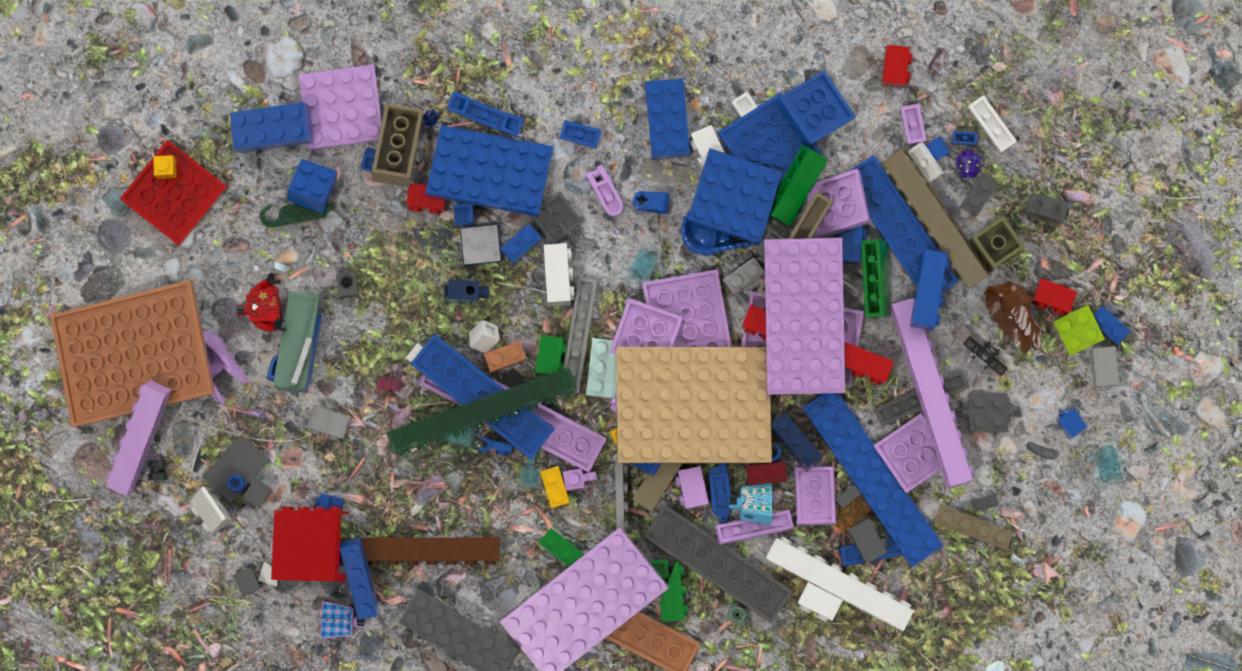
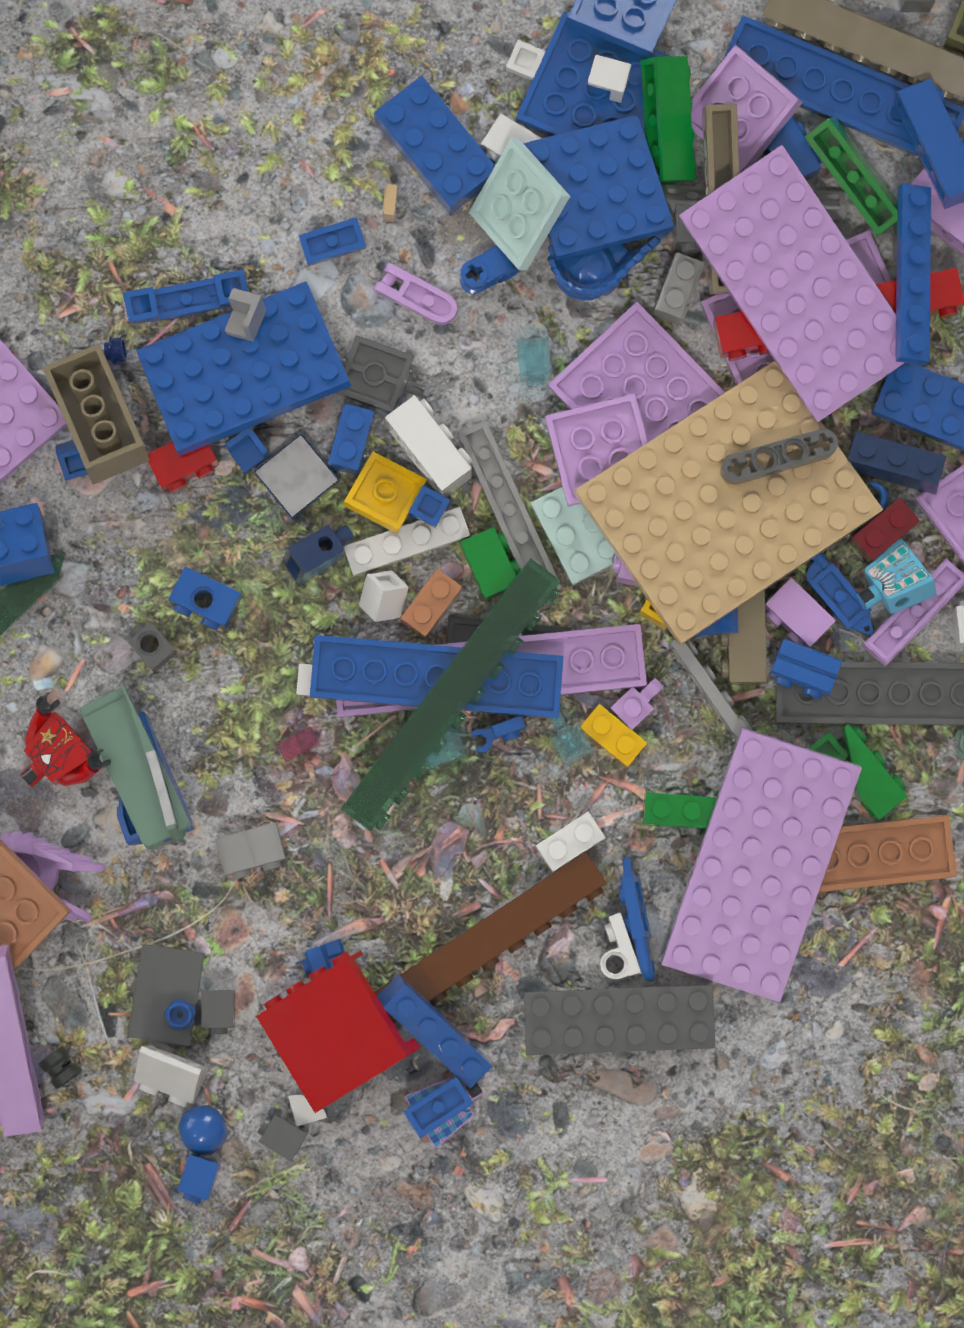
camera: 35 degrees left, 0 degrees up
(190, 573) = (198, 1178): none -> blue brick
(209, 550) = (203, 1130): none -> blue hair
(335, 618) = (438, 1107): none -> blue plate
(389, 266) = (193, 584): none -> blue brick
(488, 591) = (617, 932): none -> white plate
(495, 527) = (570, 842): none -> white brick
(502, 590) = (636, 921): none -> blue plate
(509, 144) = (246, 314): none -> light grey panel
(515, 316) = (409, 542): none -> white plate
(520, 283) = (384, 492): none -> yellow plate
(537, 306) = (429, 506): none -> blue panel
(623, 134) = (390, 203): none -> tan tile
(675, 517) = (805, 669): none -> blue brick
(687, 179) = (519, 204): none -> light aqua plate
(734, 399) = (779, 457): none -> dark grey beam
(780, 142) = (610, 76): none -> white panel
(868, 350) = (913, 274): none -> blue plate

